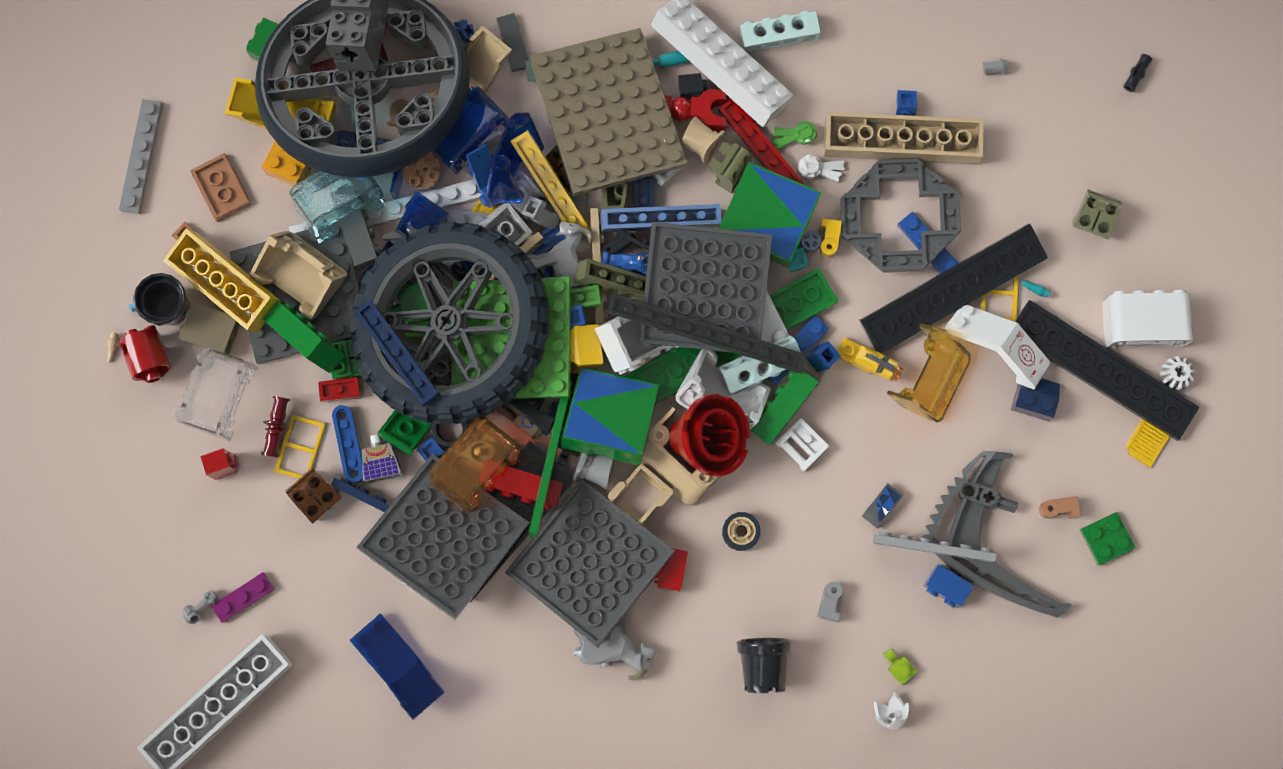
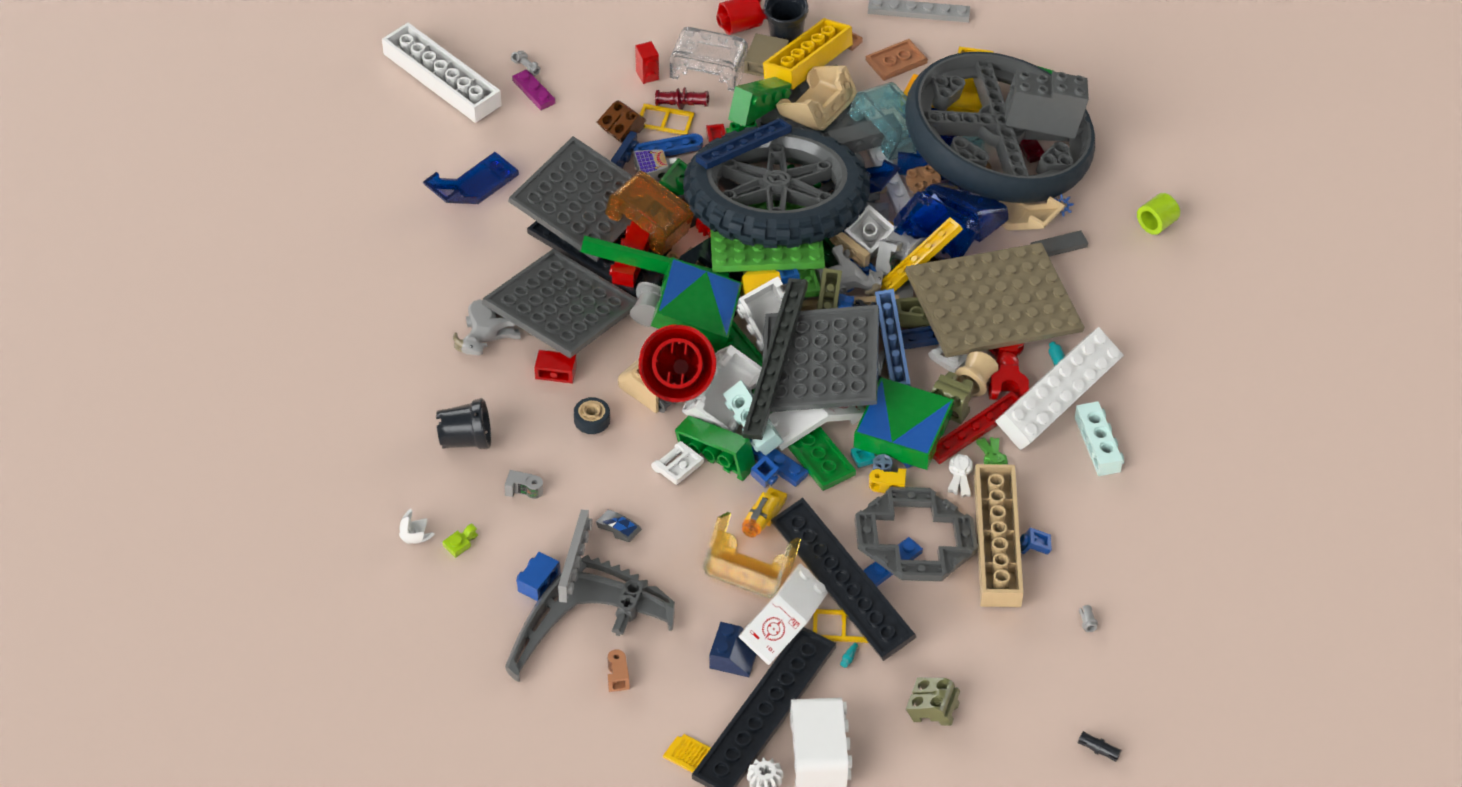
camera: 85 degrees right, 30 degrees down
(622, 486) = (628, 325): tan piece -> none
(691, 85) = (1032, 368): black brick -> none
(1107, 538) = (587, 715): green plate -> none

